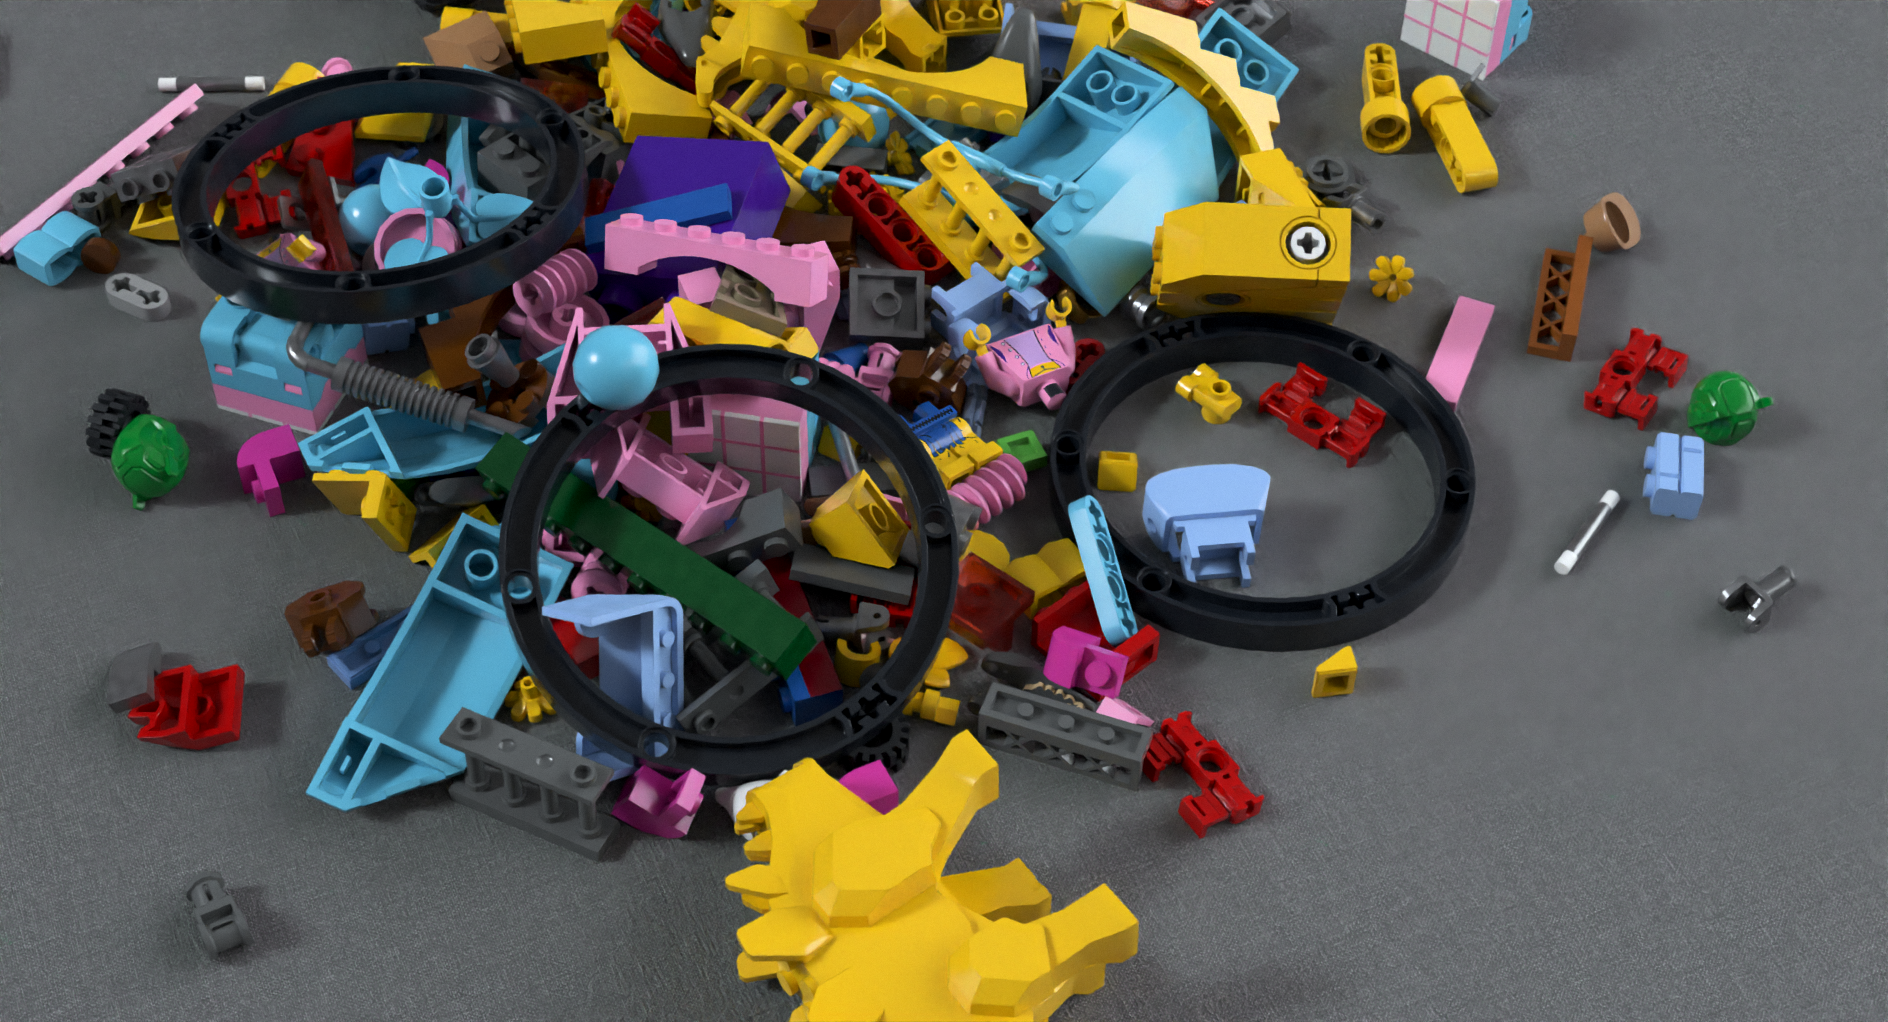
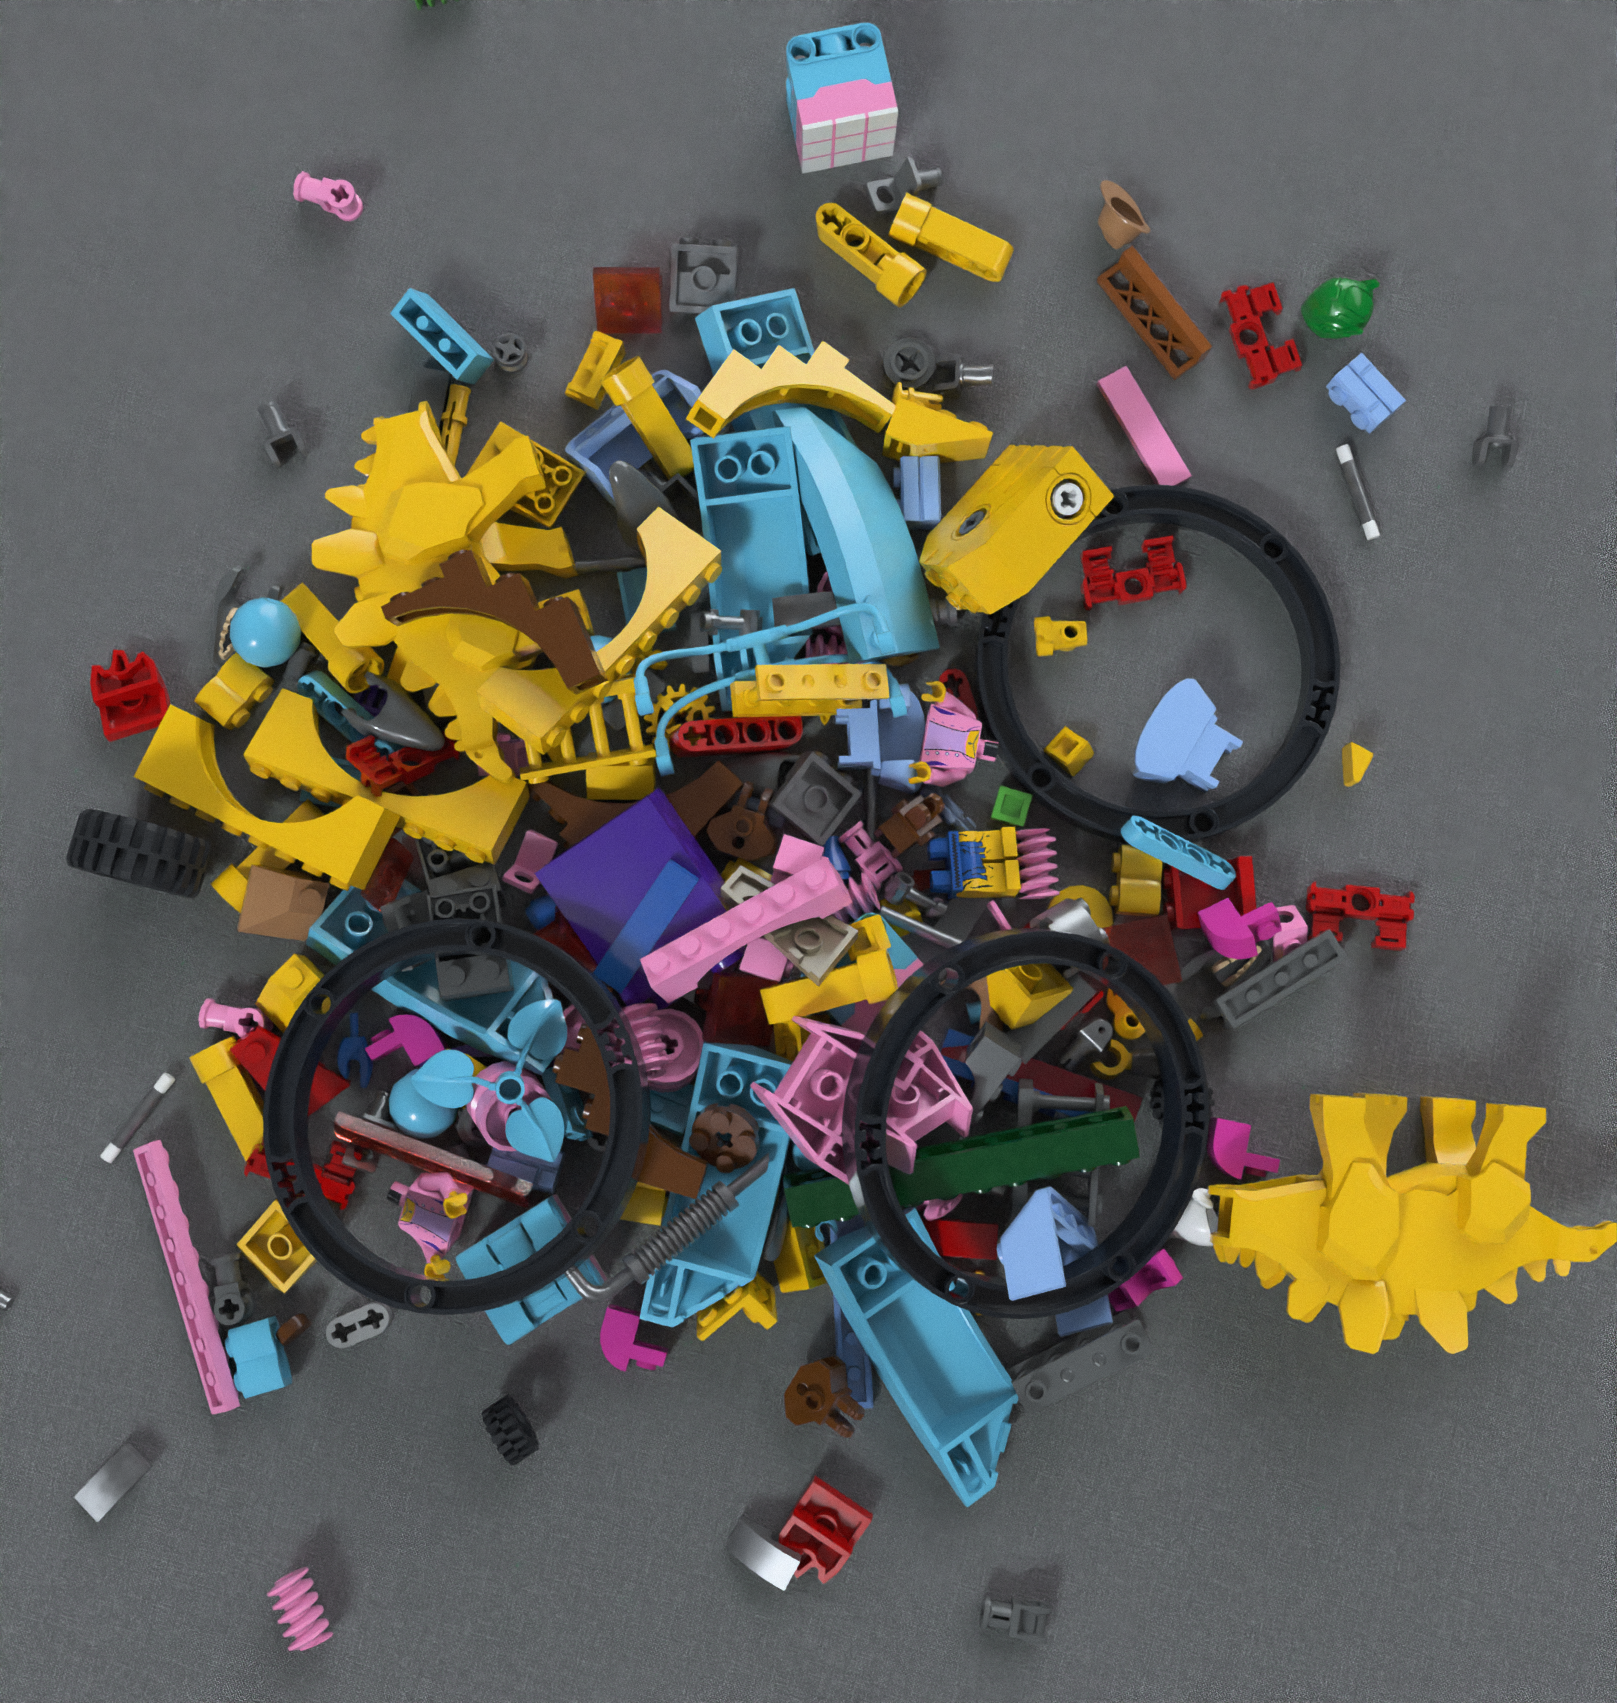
camera: 55 degrees left, 35 degrees up
(149, 458) = (564, 1428): green helmet -> none
(150, 175) = (252, 1241): flat silver plate -> none
(490, 358) = (699, 1152): flat silver cone -> none
(615, 367) = (873, 1123): medium azure piece -> none
(1391, 278) = (1048, 412): yellow plant -> none

